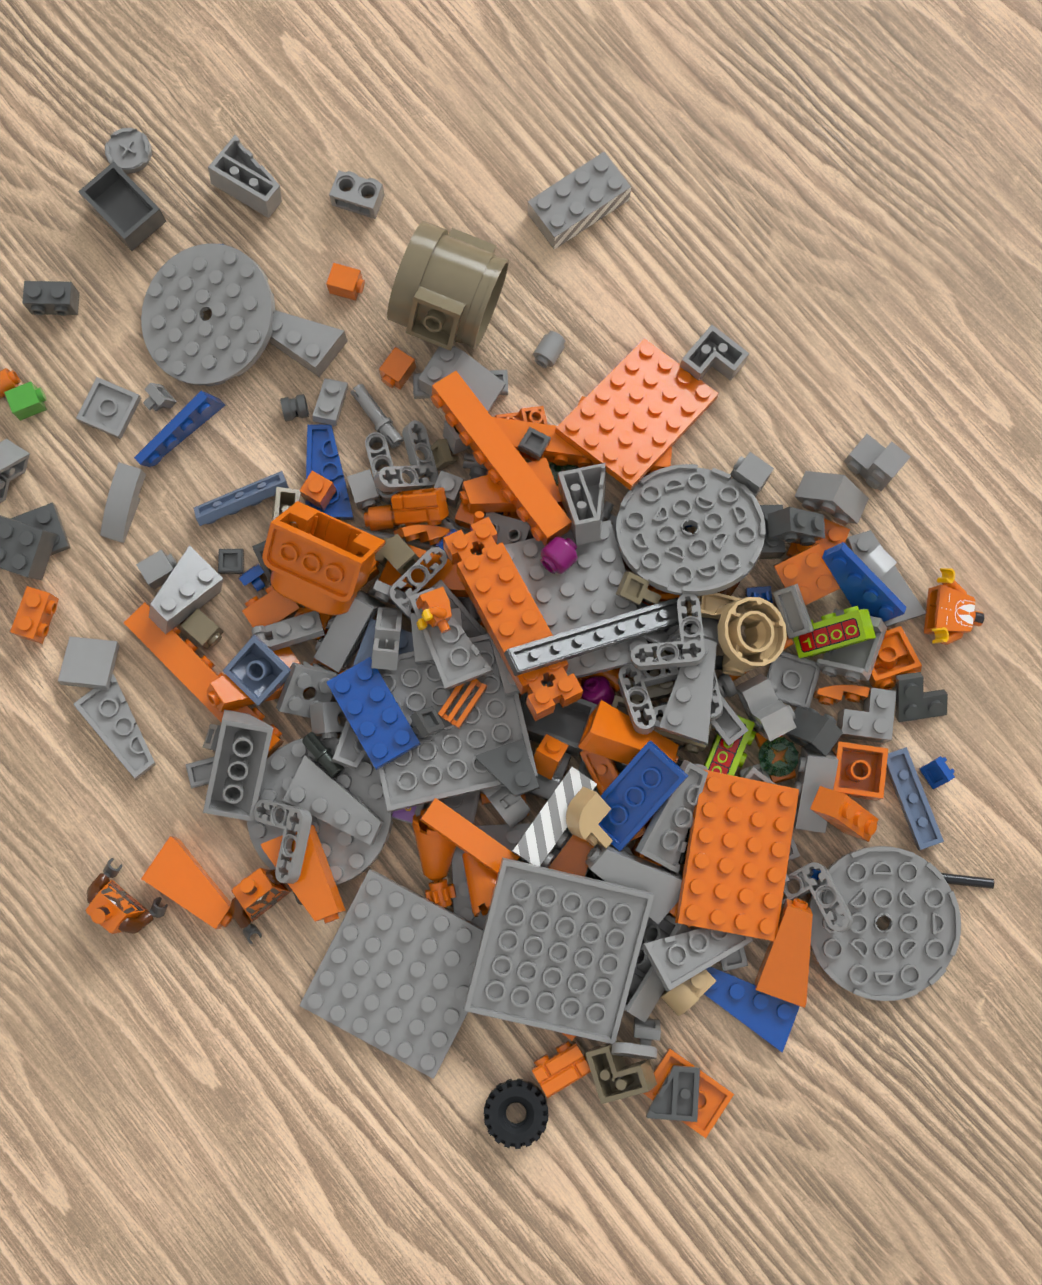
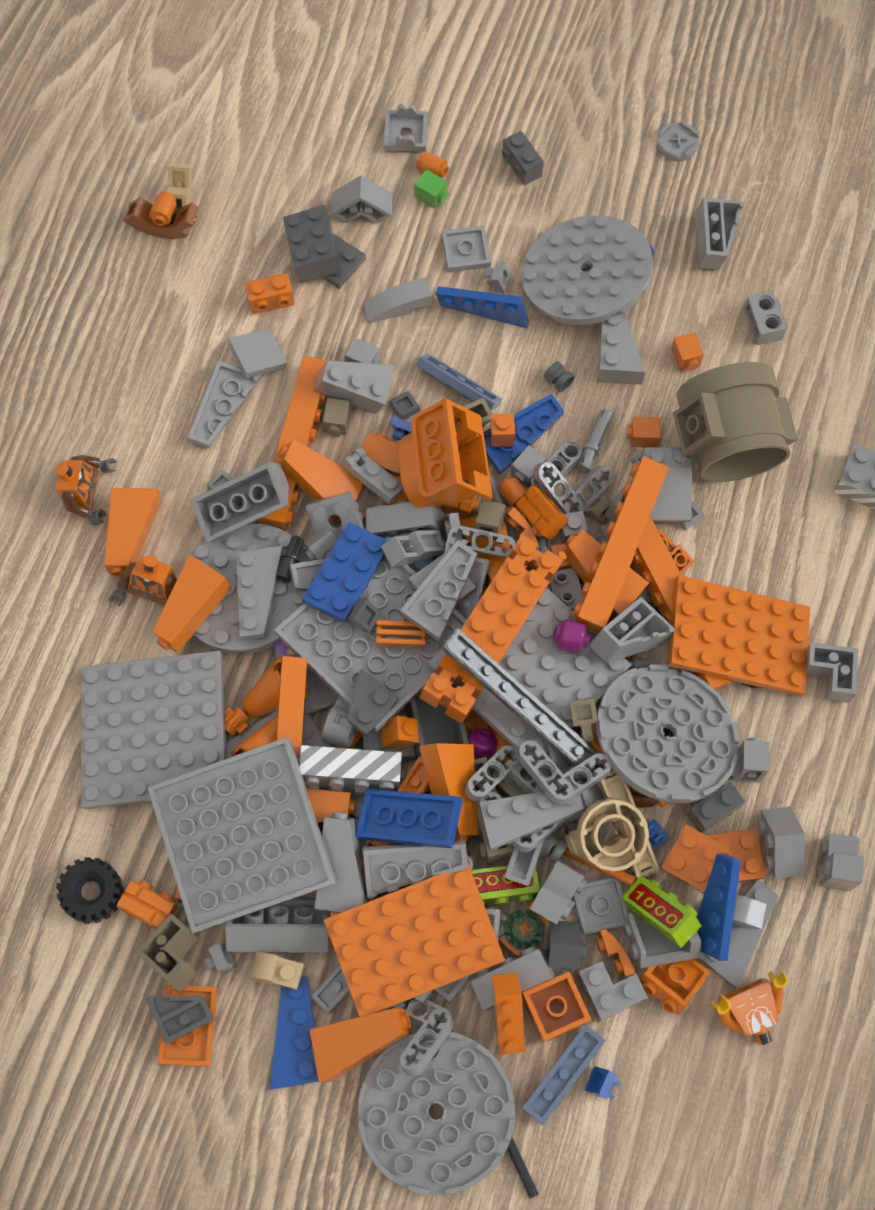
camera: 55 degrees right, 10 degrees down
(122, 206) = (629, 161): dark grey piece -> none
(257, 670) = (325, 468): sand blue slope -> none
(287, 870) = (221, 568): light grey beam -> none
(330, 402) = (582, 399): light grey plate -> none
(435, 610) = (457, 561): orange piece -> none
(534, 443) = (653, 566): dark grey tile -> none
(549, 349) = (744, 537): light grey brick -> none
(585, 814) = (365, 784): tan brick -> none
(634, 1050) = (195, 952): light grey tile -> none
(690, 953) = (306, 949): light grey wing -> none
(793, 611) = (657, 864): light grey tile -> none
(796, 526) = (732, 821): dark grey brick -> none
(916, 704) = (649, 1028): dark grey plate -> none

